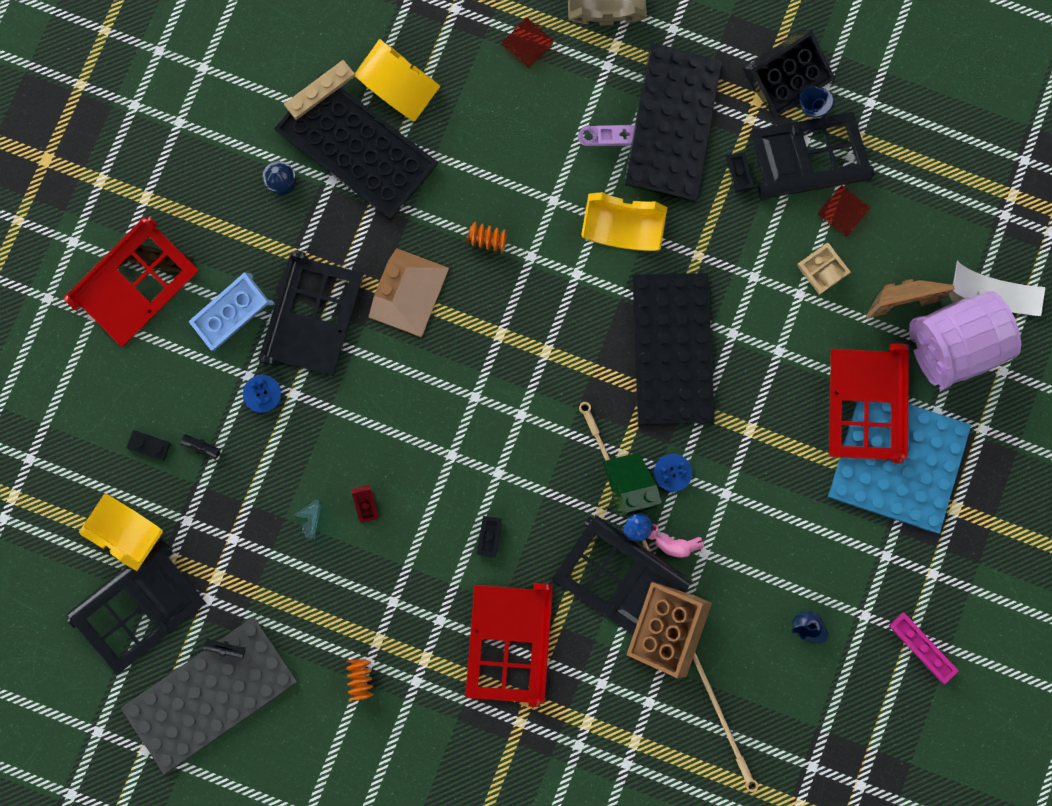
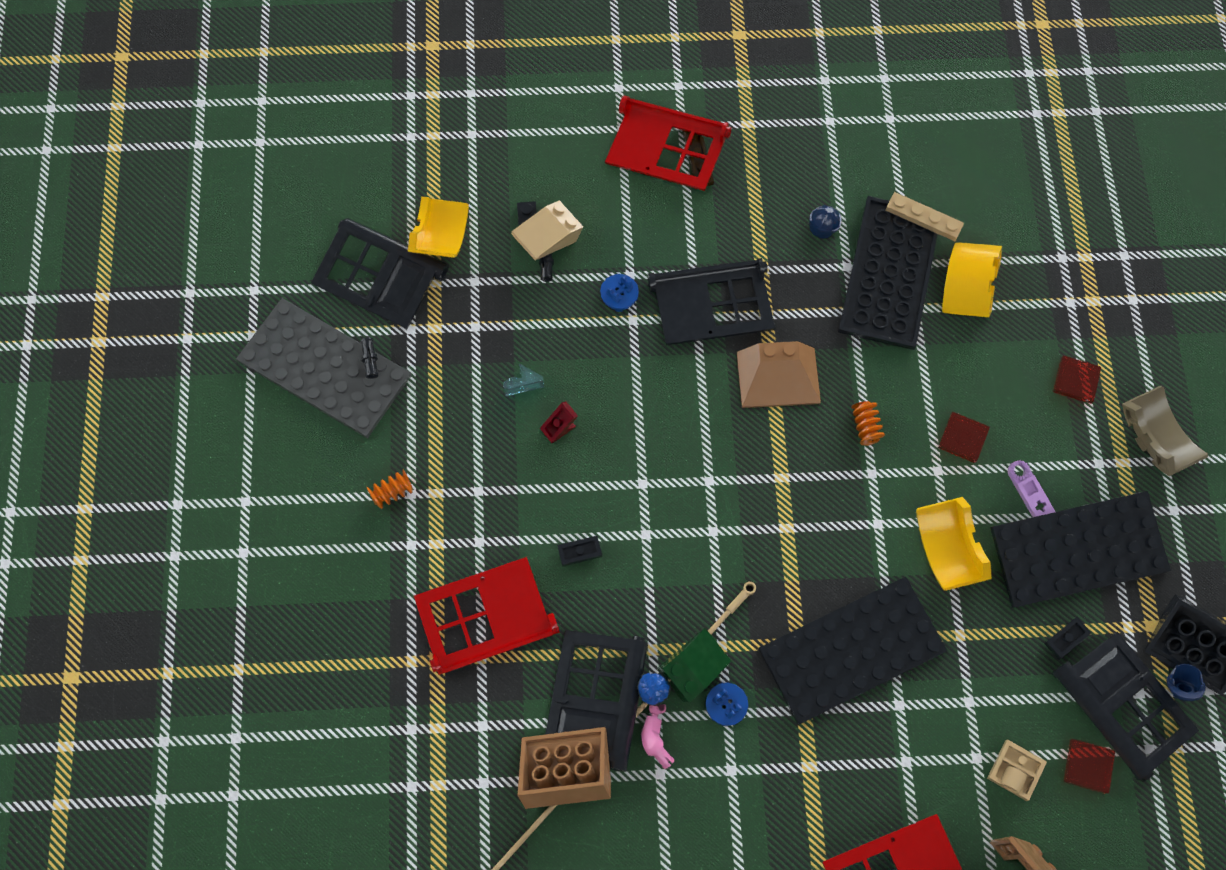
camera: 70 degrees right, 10 degrees down
(173, 432) = (548, 230): none -> tan slope
(229, 311) = (681, 230): light blue plate -> none
(535, 164) = (963, 437): none -> clear red tile

